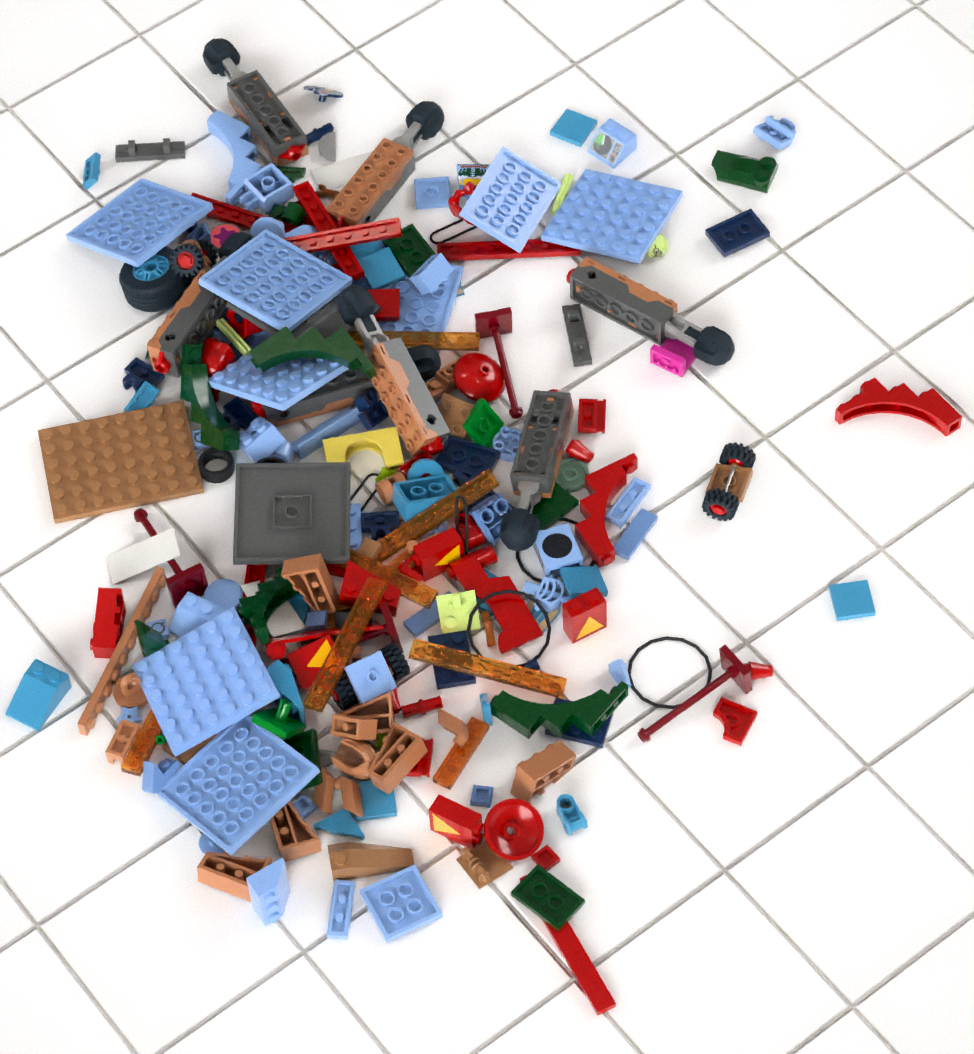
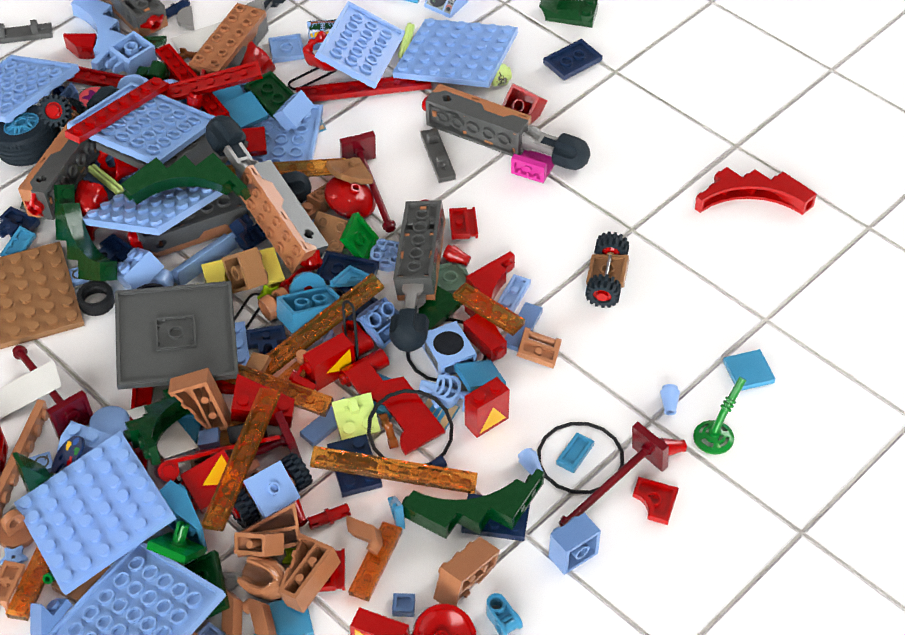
camera: 10 degrees left, 5 degrees down
(187, 622) = (70, 451): none -> dark blue piece
(215, 171) = (81, 44): none -> red slope
(250, 265) = (116, 110): none -> red plate
(329, 254) = (195, 99): none -> red cone
(365, 451) = (245, 270): none -> medium nougat brick
(399, 207) = (255, 53): none -> red piece
(470, 467) = (348, 277): none -> dark azure tile
(482, 349) = (350, 170): none -> medium nougat plate
(601, 514) = (489, 309): none -> clear orange plate
(645, 562) = (537, 351): none -> nougat plate
(646, 755) = (574, 543): none -> medium blue brick
(665, 667) = (575, 452): none -> dark azure tile
(675, 283) = (524, 101): none -> red slope
(767, 620) = (670, 397): none -> light blue cone
(804, 657) = (714, 426): none -> green dish

